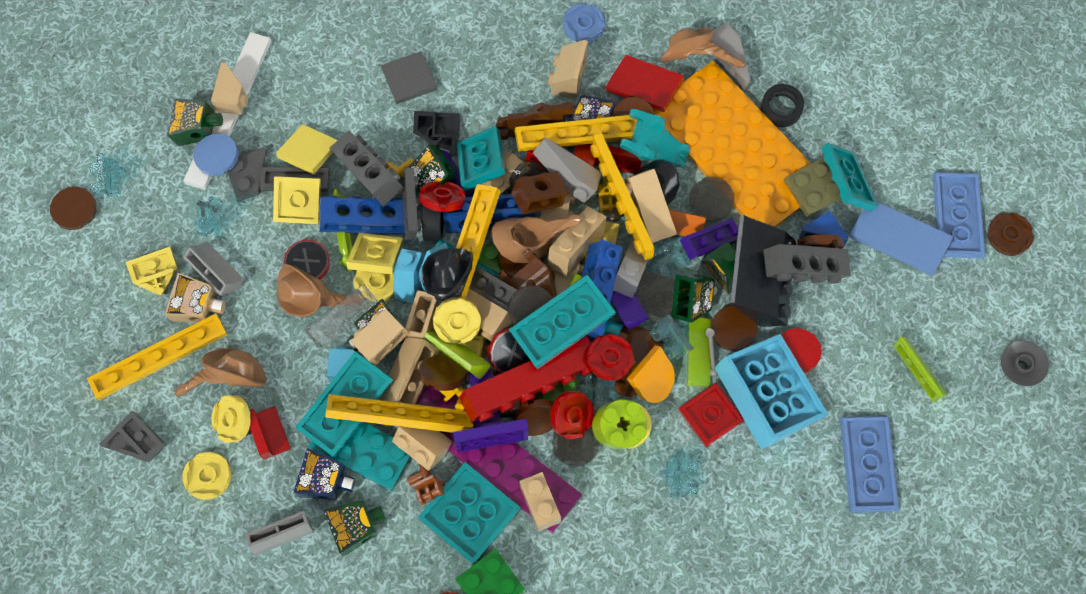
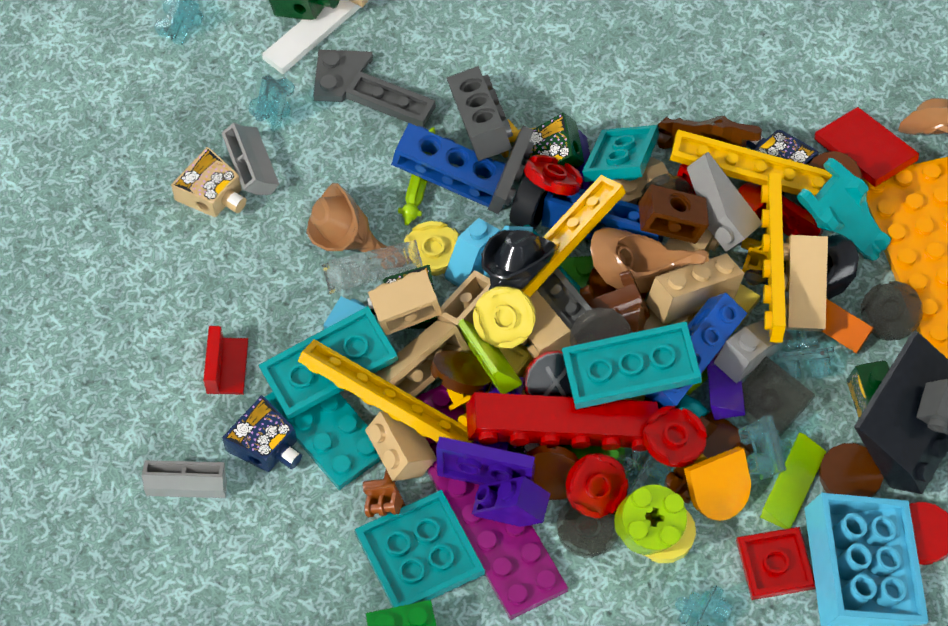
camera: 25 degrees right, 10 degrees down
(73, 208) = (125, 38): reddish brown tile -> none
(134, 438) = (71, 309): dark grey wing -> none
(153, 270) = (182, 137): light yellow slope -> none
(157, 356) = (141, 230): yellow plate -> none
(207, 475) = (139, 390): light yellow tile -> none
(216, 154) = (312, 37): medium blue tile -> none
(228, 367) = (215, 270): medium nougat hat -> none
(231, 418) = (190, 329): light yellow tile -> none
(296, 200) = (380, 119): light yellow plate -> none
(307, 149) = (419, 71): light yellow tile -> none
(309, 257) = (368, 190): black tile -> none
(353, 525) = (274, 506): torso -> none
(375, 253) = (444, 213): light yellow plate -> none
(408, 77) = (578, 38): dark grey tile -> none
(434, 127) = (587, 105): black slope -> none
(519, 452) = (512, 502): none -> dark purple slope
(540, 501) = (510, 568): tan brick -> none
(569, 69) = (778, 97): tan slope -> none
(583, 29) = (825, 61): medium blue tile -> none
(692, 296) = (813, 409): dark green torso -> none
(710, 238) = (853, 350): dark purple plate -> none
(711, 333) = (817, 466): light grey hinge -> none

